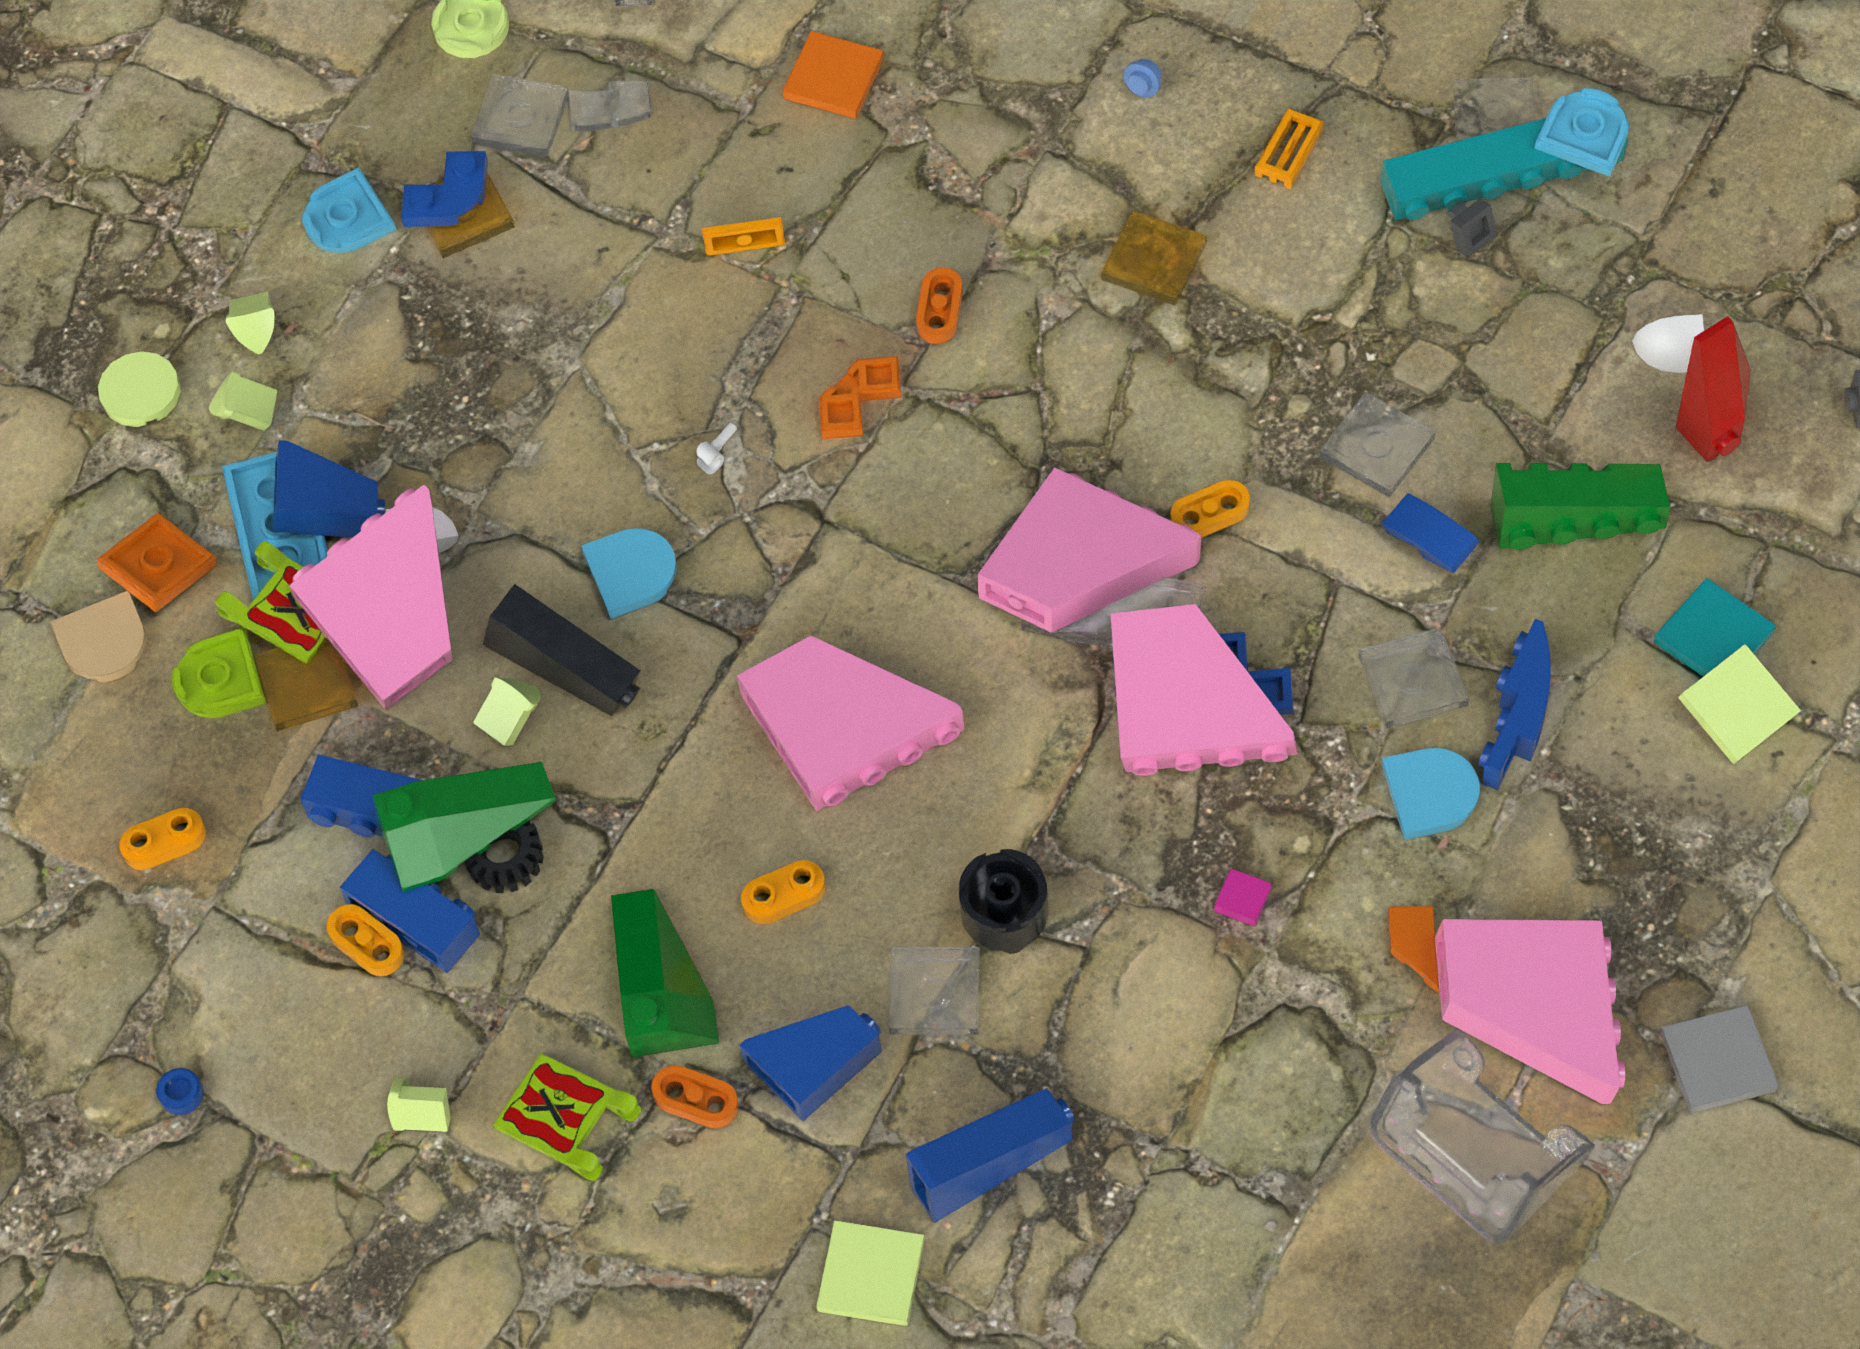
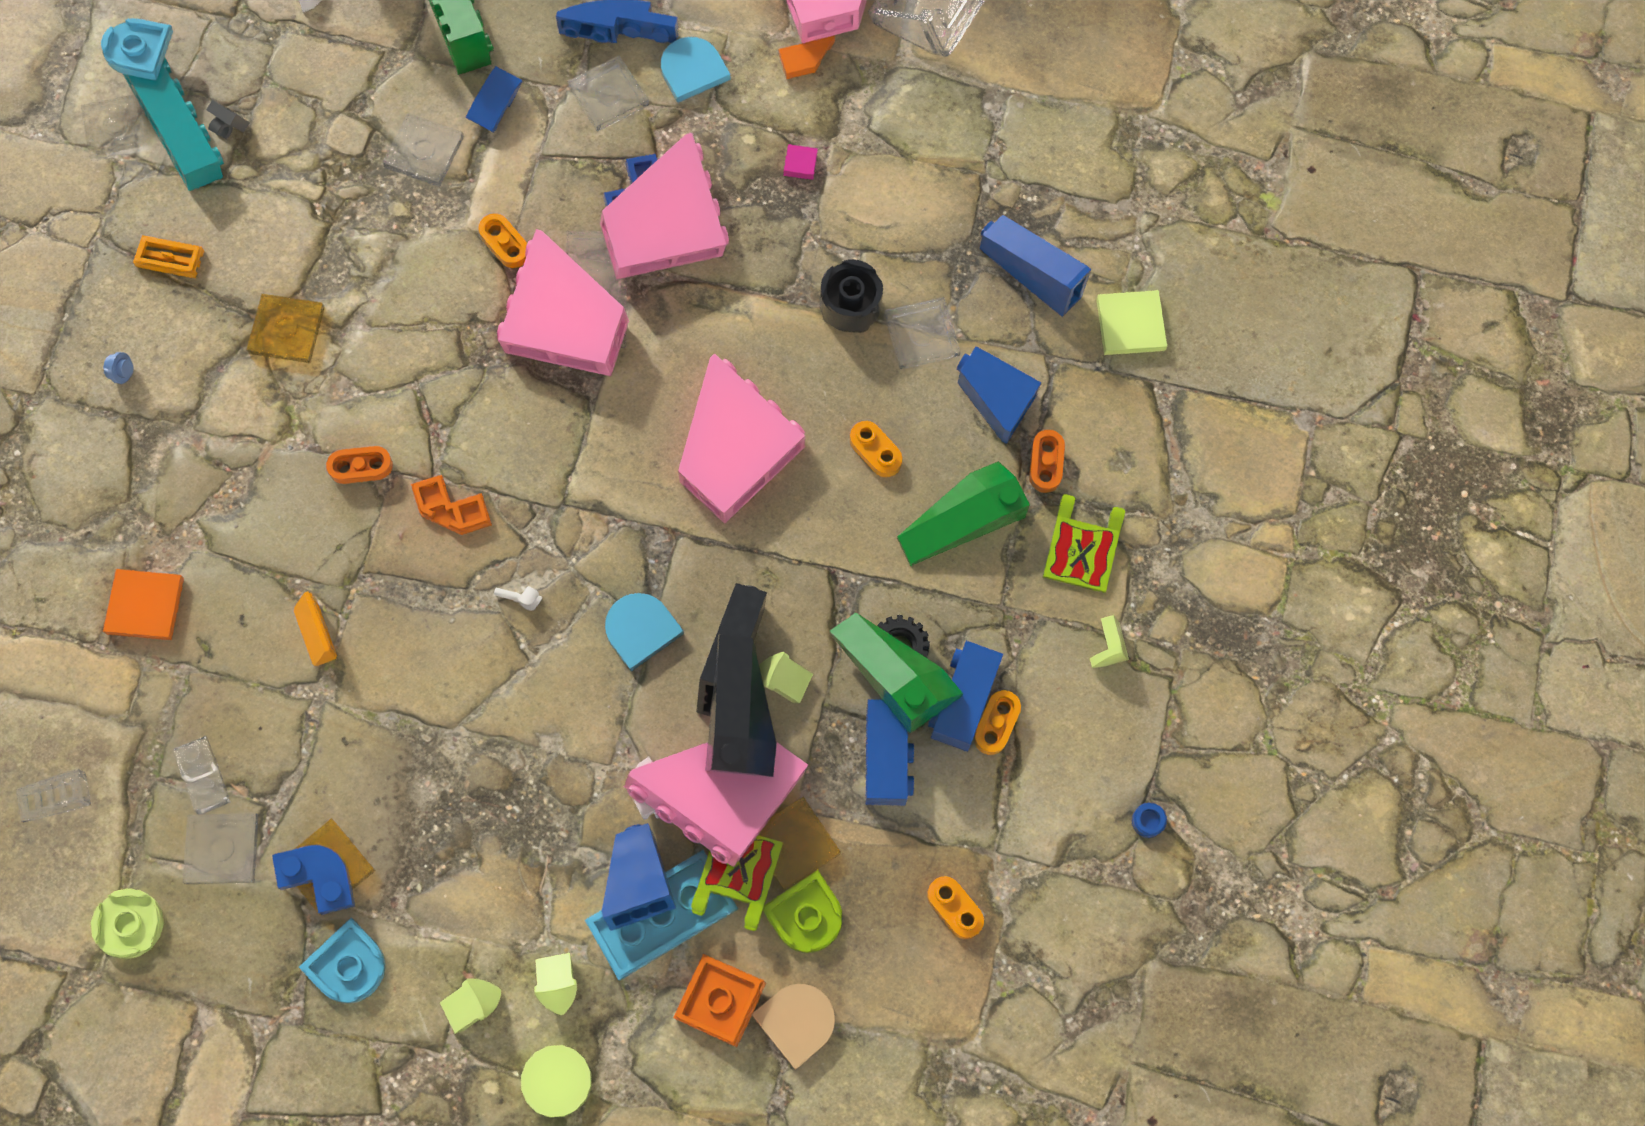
camera: 115 degrees left, 10 degrees up
(440, 612) = (740, 720): none -> black wedge

